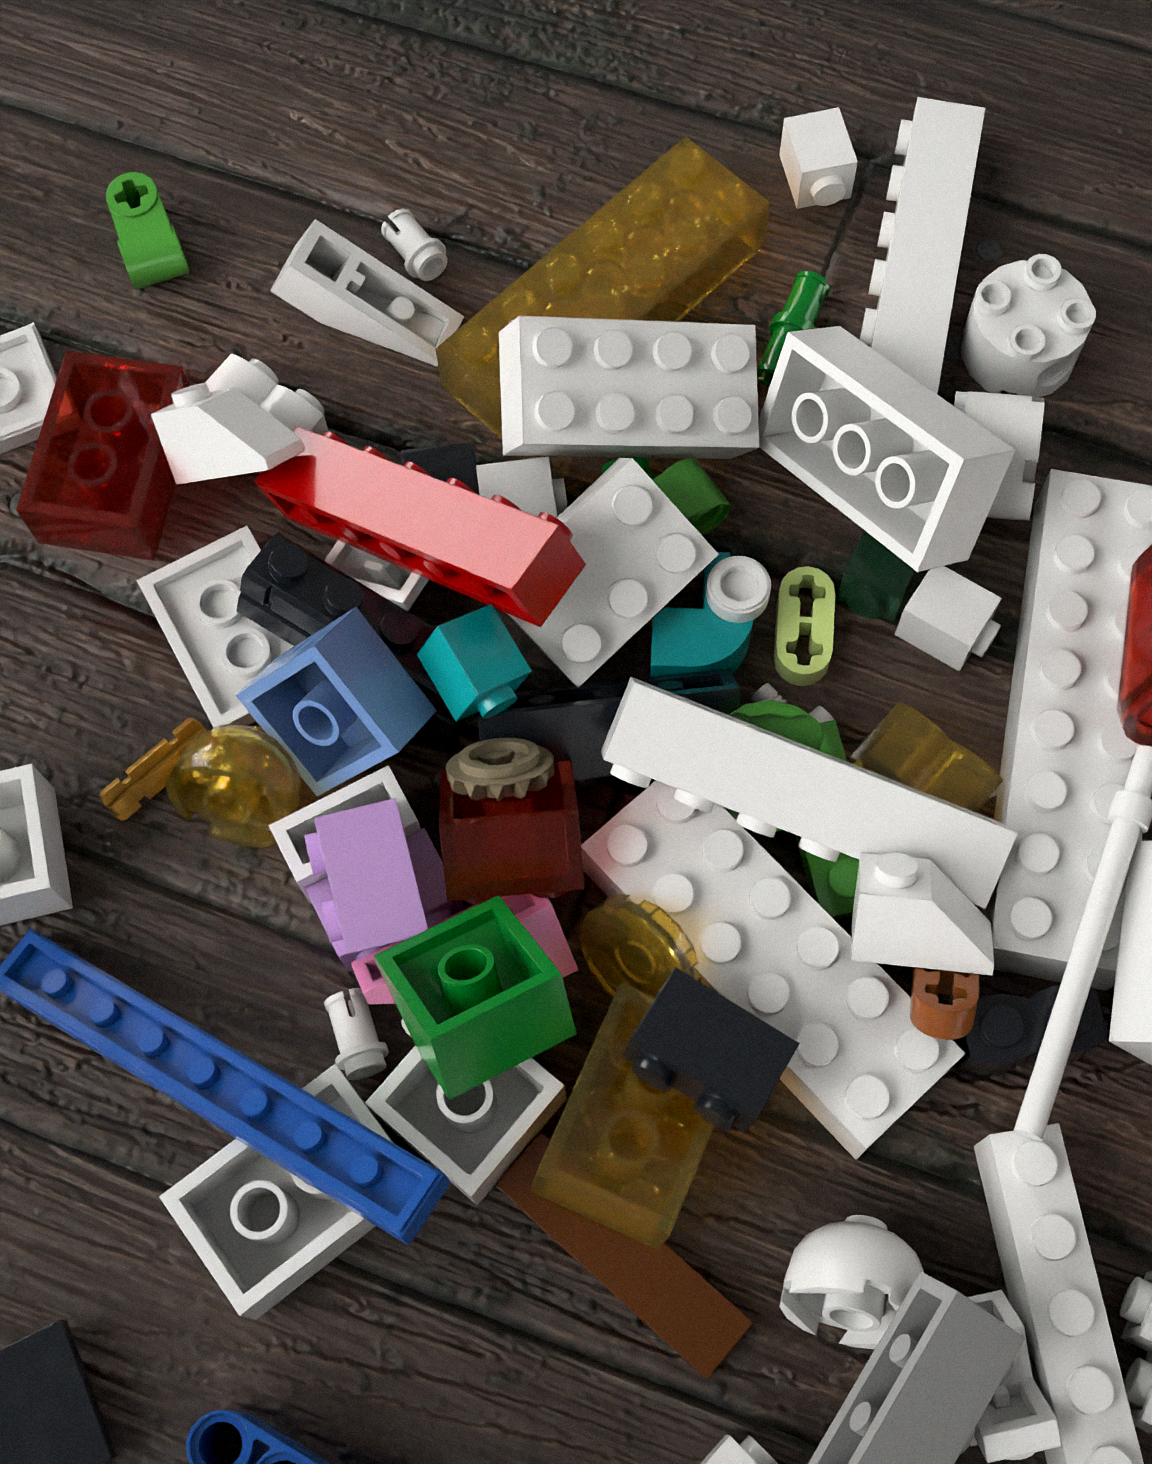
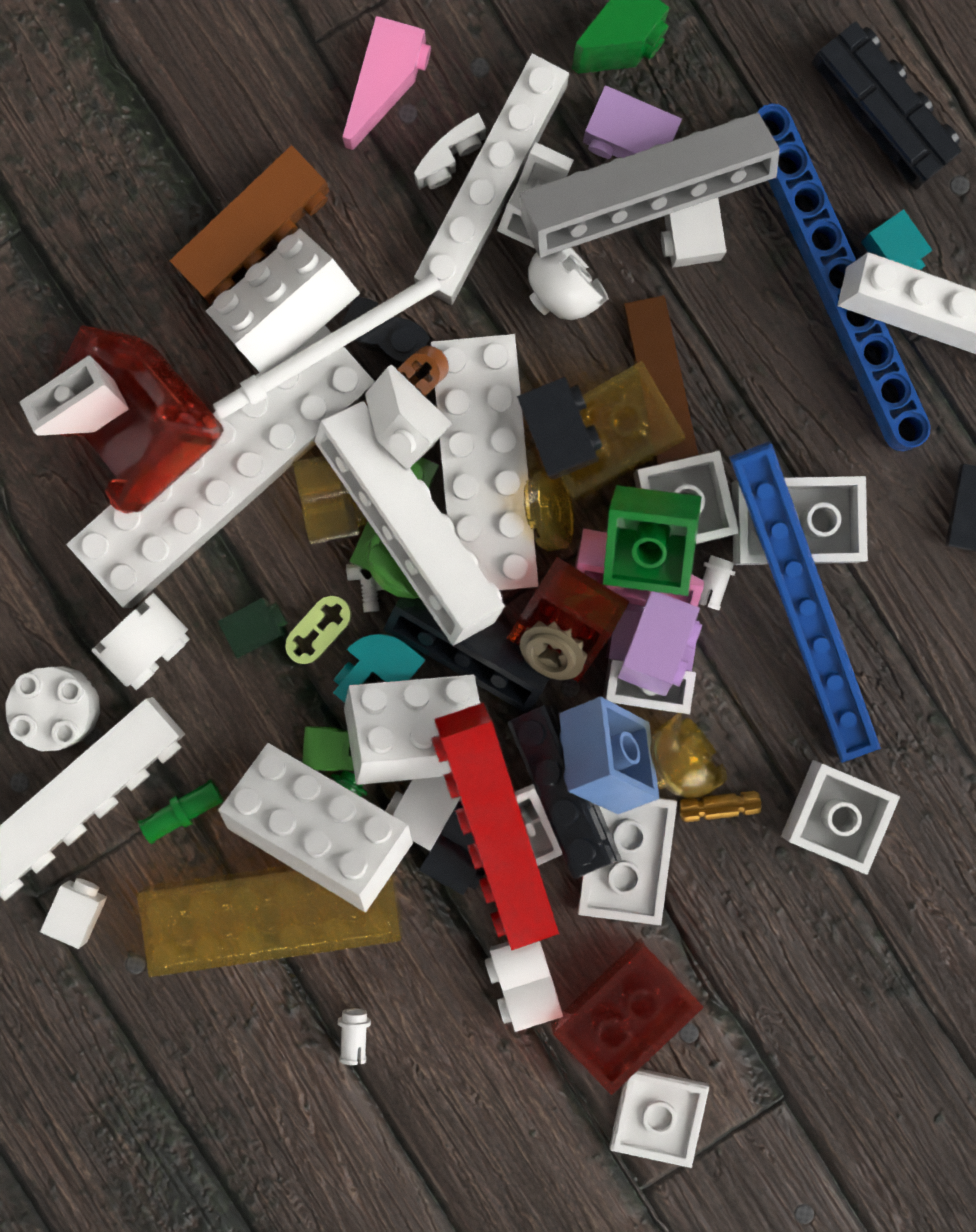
camera: 150 degrees left, 20 degrees up
(144, 231) = (508, 1157): bright green piece -> none
(221, 435) = (560, 967): white slope -> none
(363, 296) = (409, 1018): white slope -> none
(474, 664) = (526, 715): teal brick -> none
(738, 589) = (347, 665): white tile -> none
(881, 447) = (210, 685): white brick -> none
(949, 617) = (240, 572): white brick -> none

